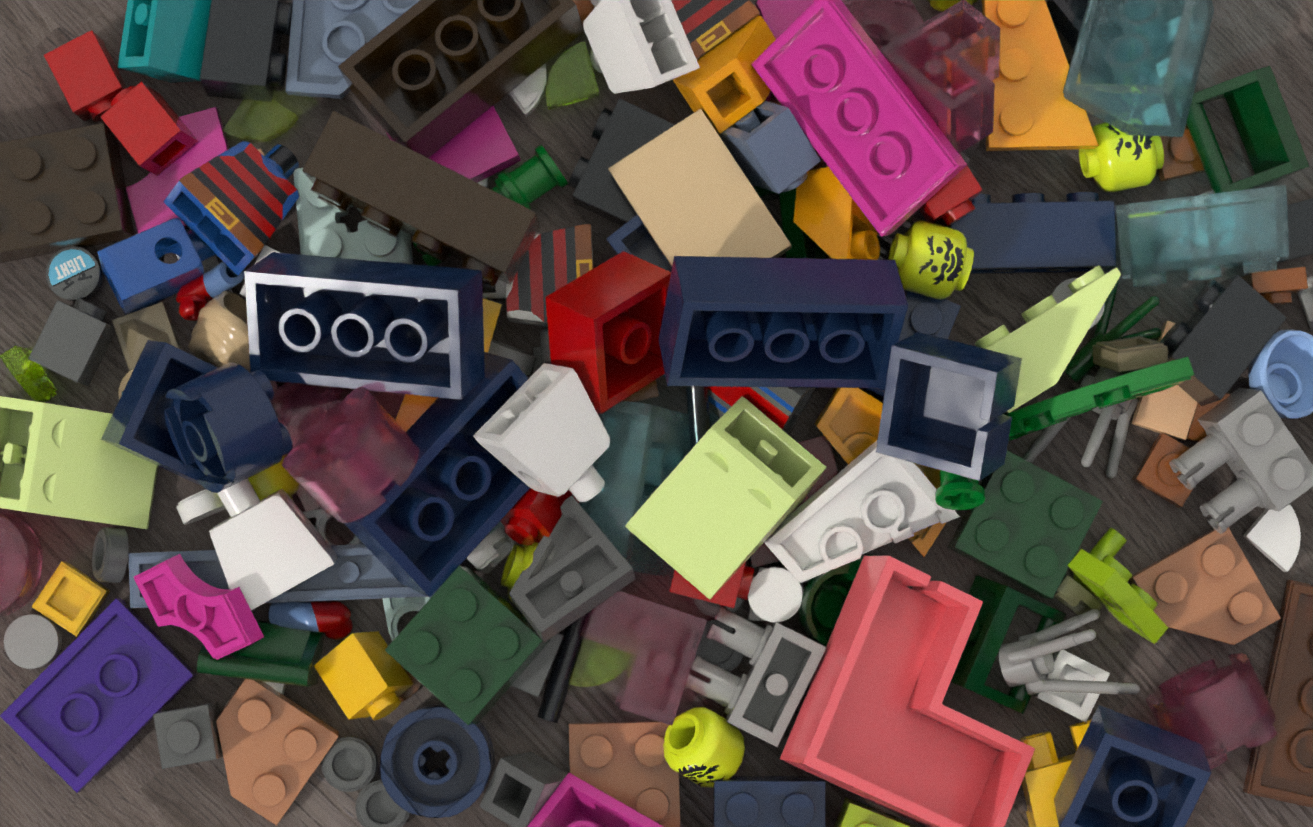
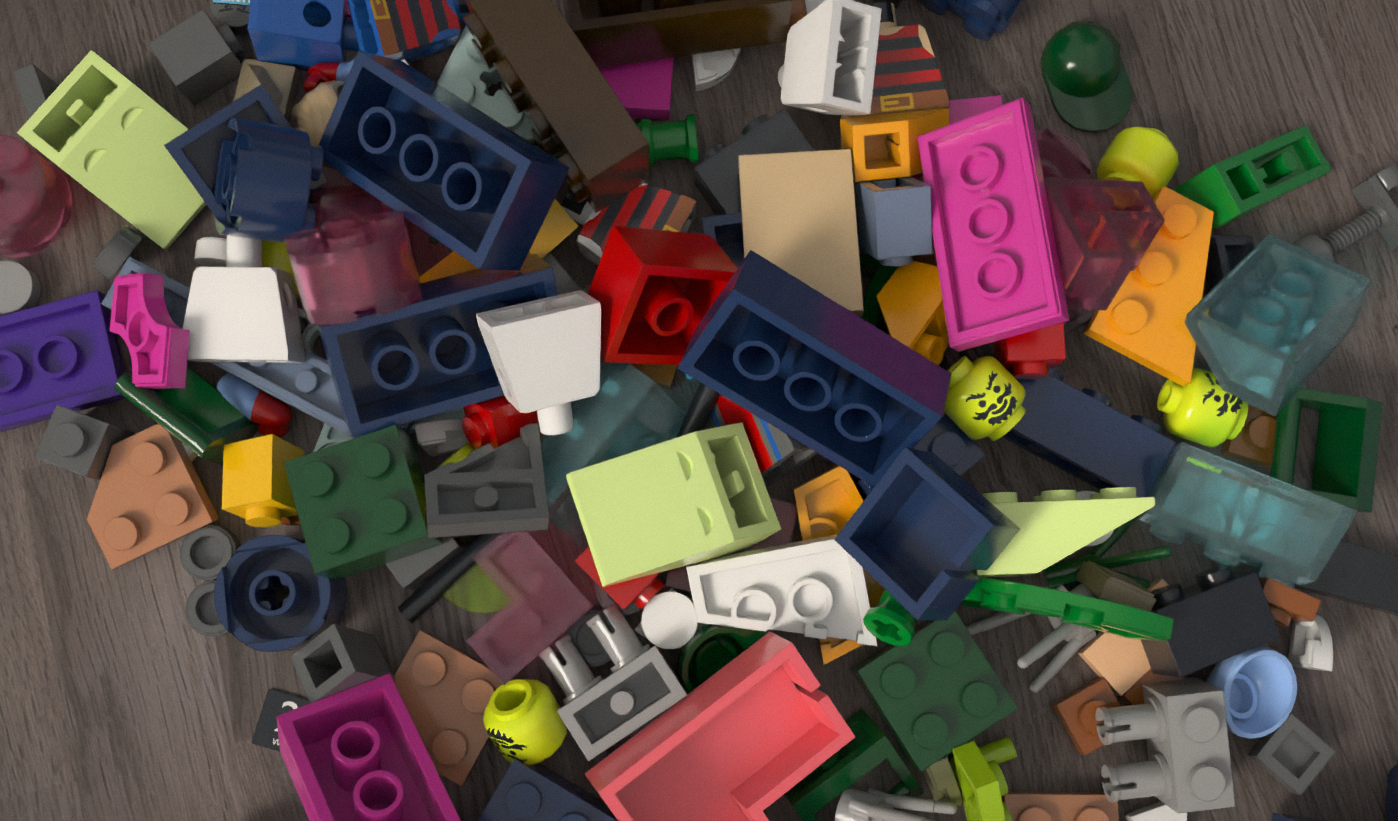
camera: 30 degrees right, 5 degrees down
(28, 374) = (145, 66): clear neon green tile -> none
(70, 598) = (64, 270): yellow tile -> none
(571, 78) = (753, 77): clear neon green tile -> none

